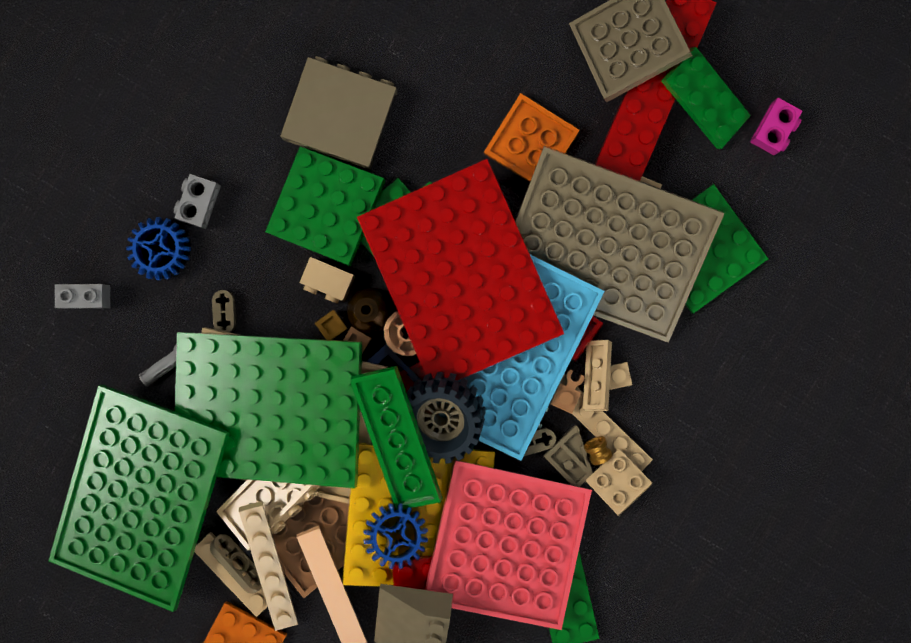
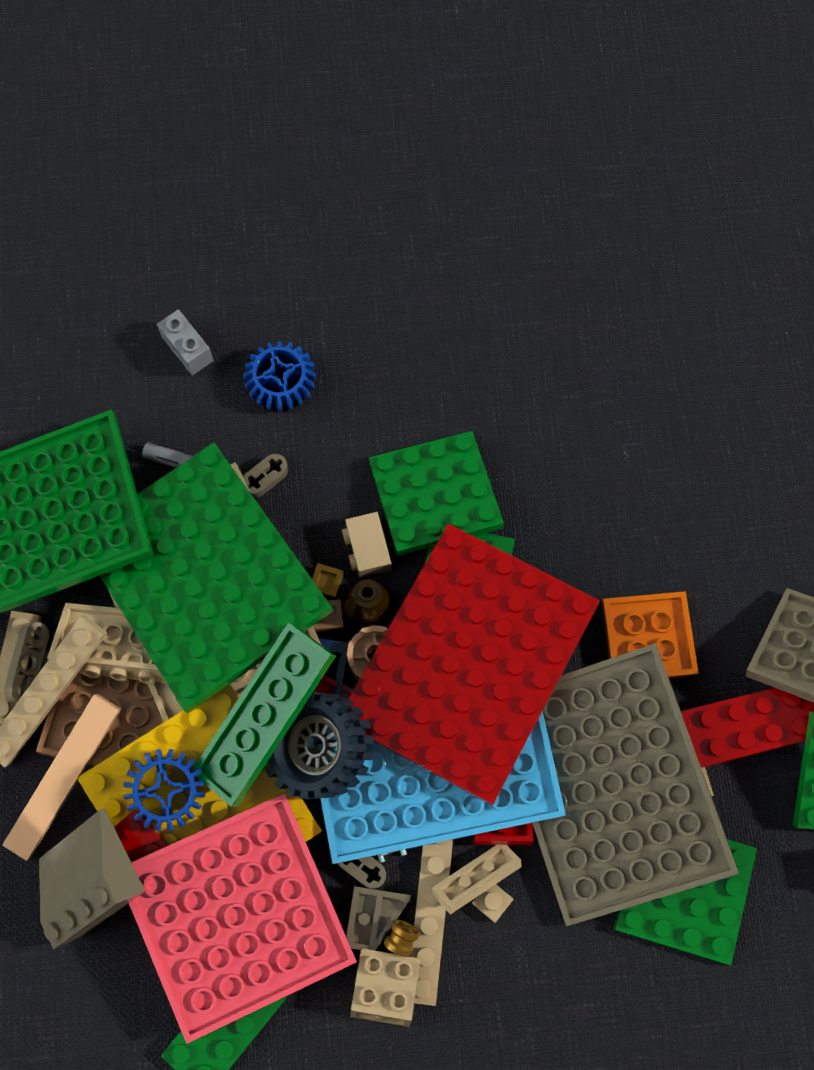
camera: 50 degrees right, 15 degrees down
(204, 203) = (352, 384): light grey brick -> none
(338, 112) = (530, 441): dark tan panel -> none
(566, 395) = (432, 861): medium nougat plate -> none

